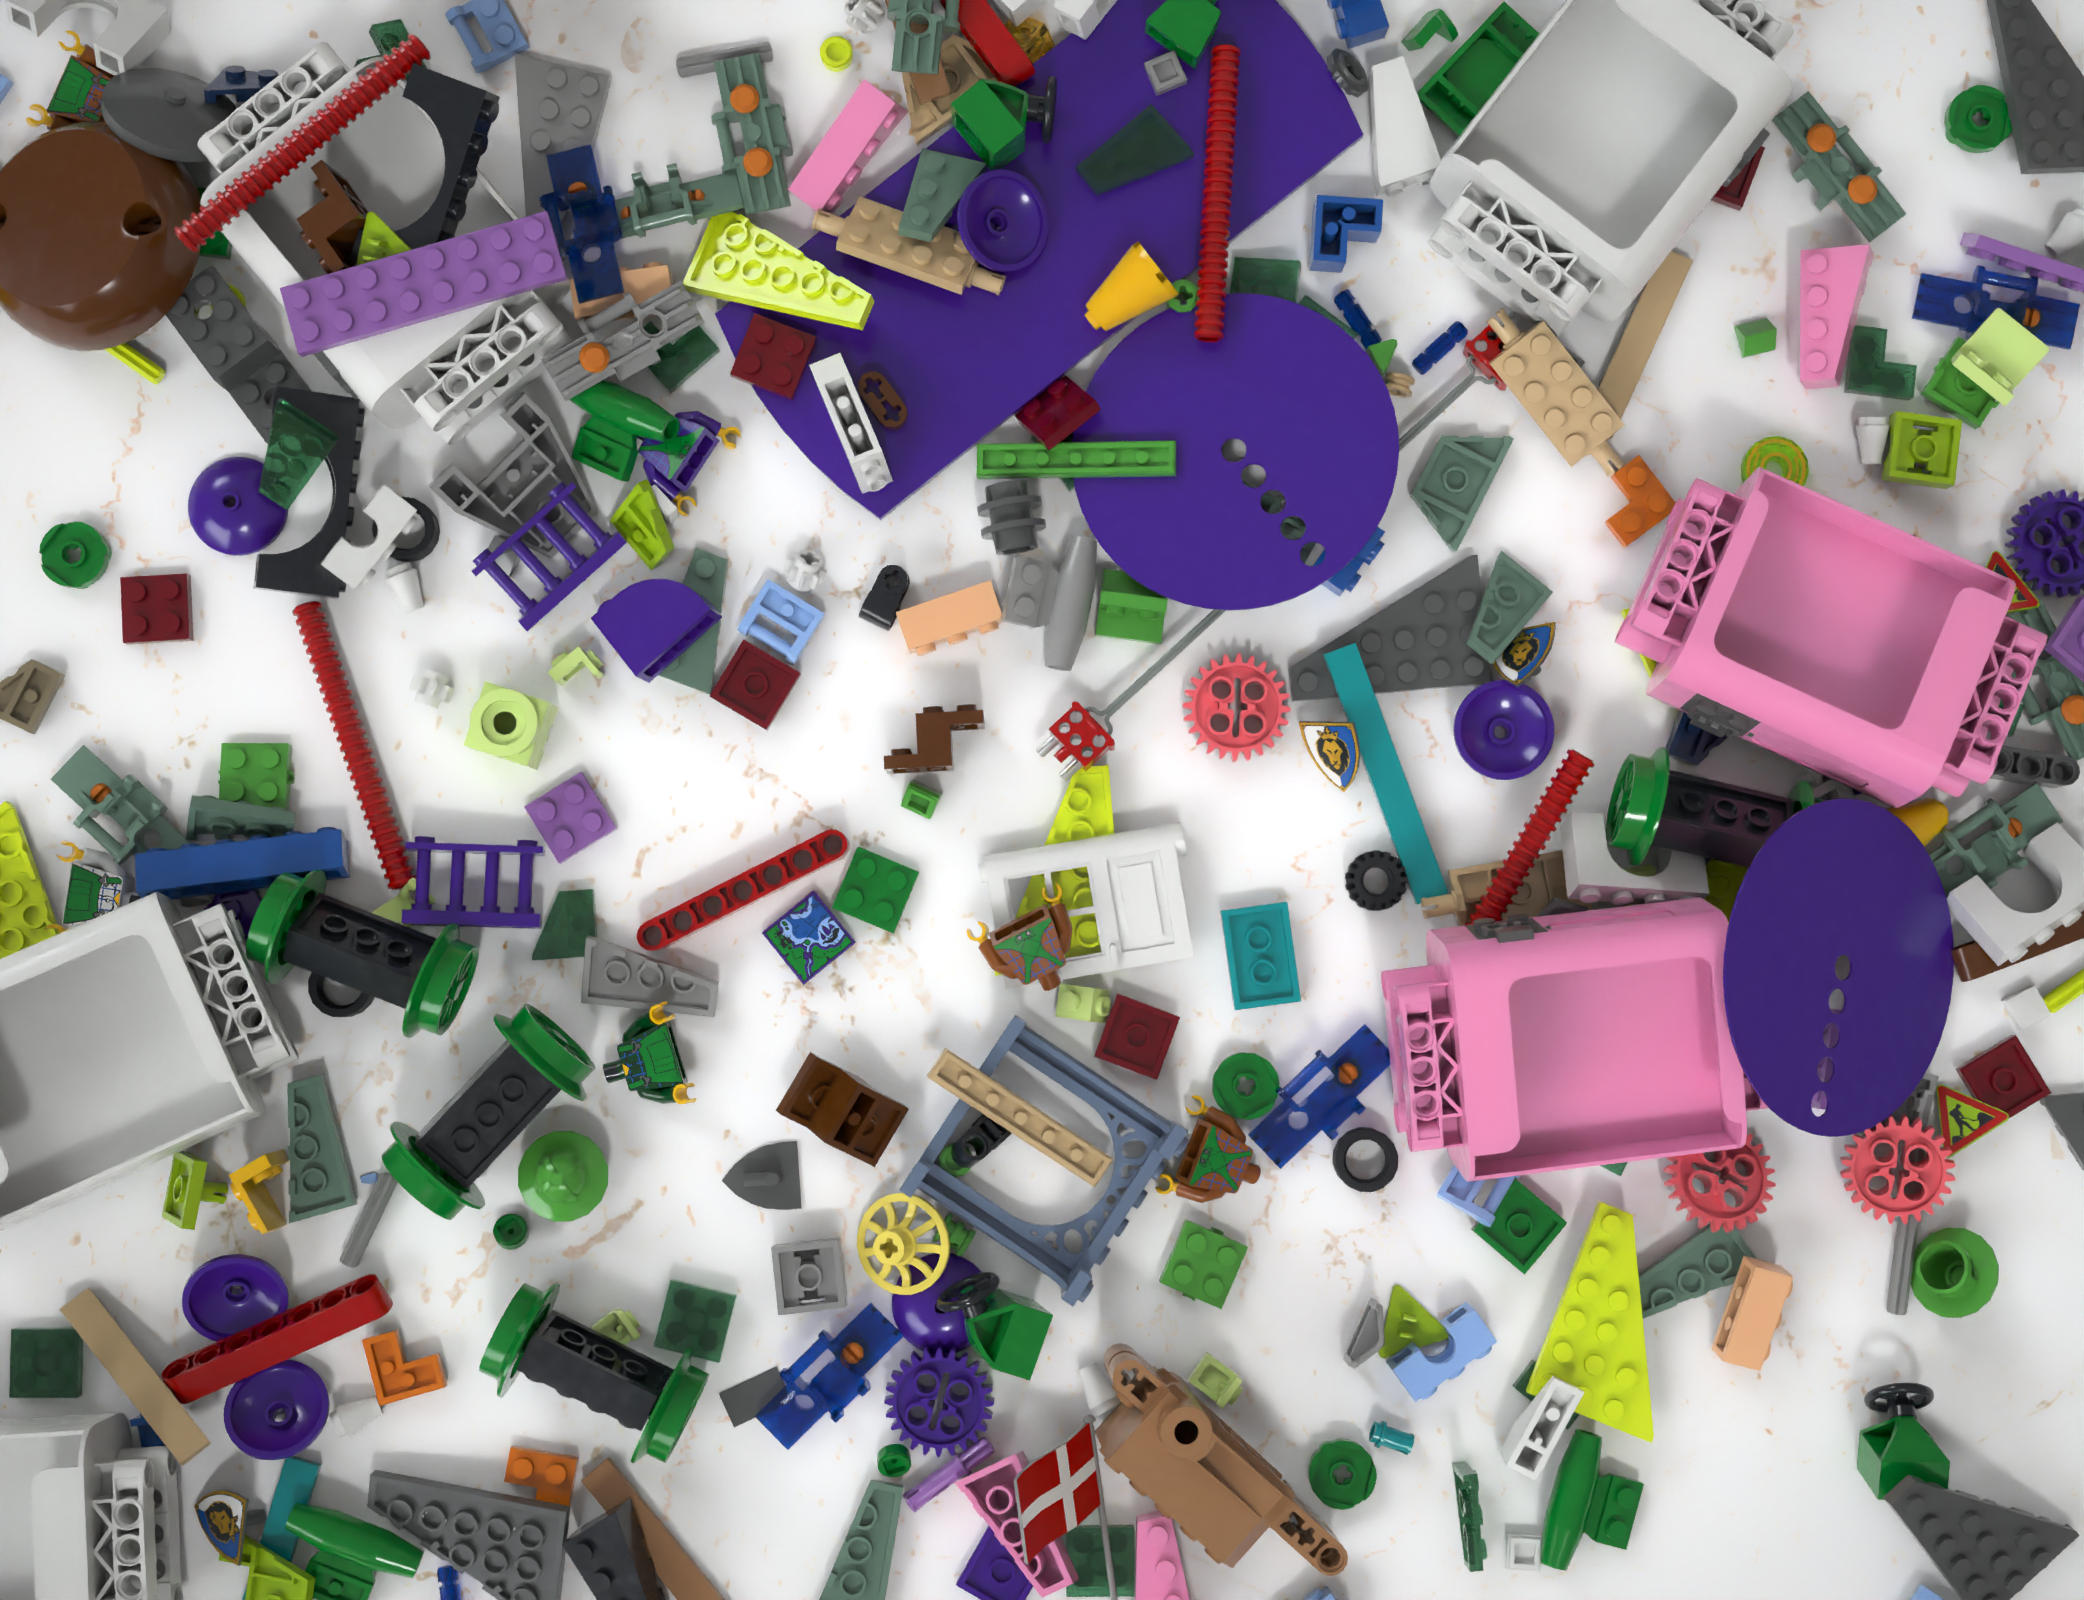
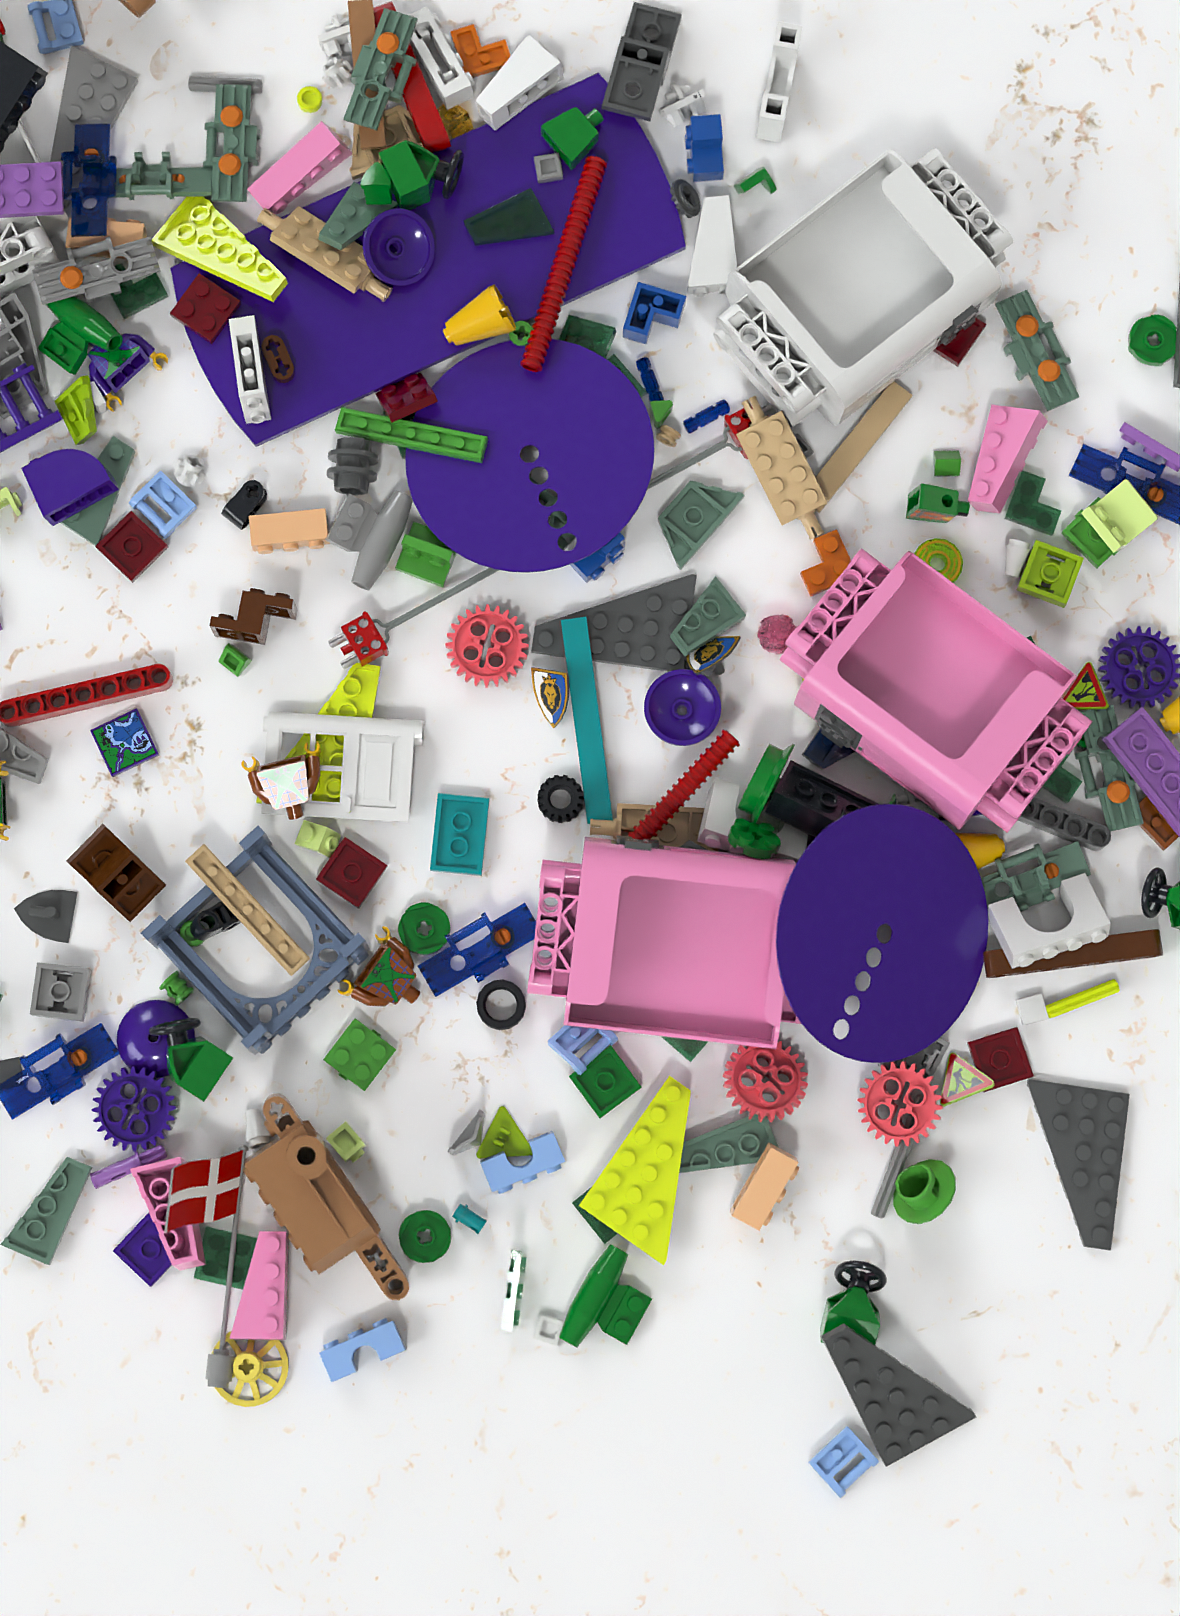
camera: 15 degrees right, 5 degrees down
(875, 890) = (183, 719): green plate -> none
(894, 1460) = (89, 1146): green tile -> none
(899, 1245) = (132, 983): light yellow wheel -> none
(957, 146) = (377, 185): none -> green tile
(1477, 69) = (780, 213): green slope -> none
(1540, 1427) = (582, 1231): white slope -> none
(1598, 607) = (775, 632): none -> clear pink piece
(1649, 884) = (755, 839): none -> green plate
(1756, 395) = (935, 504): none -> green torso

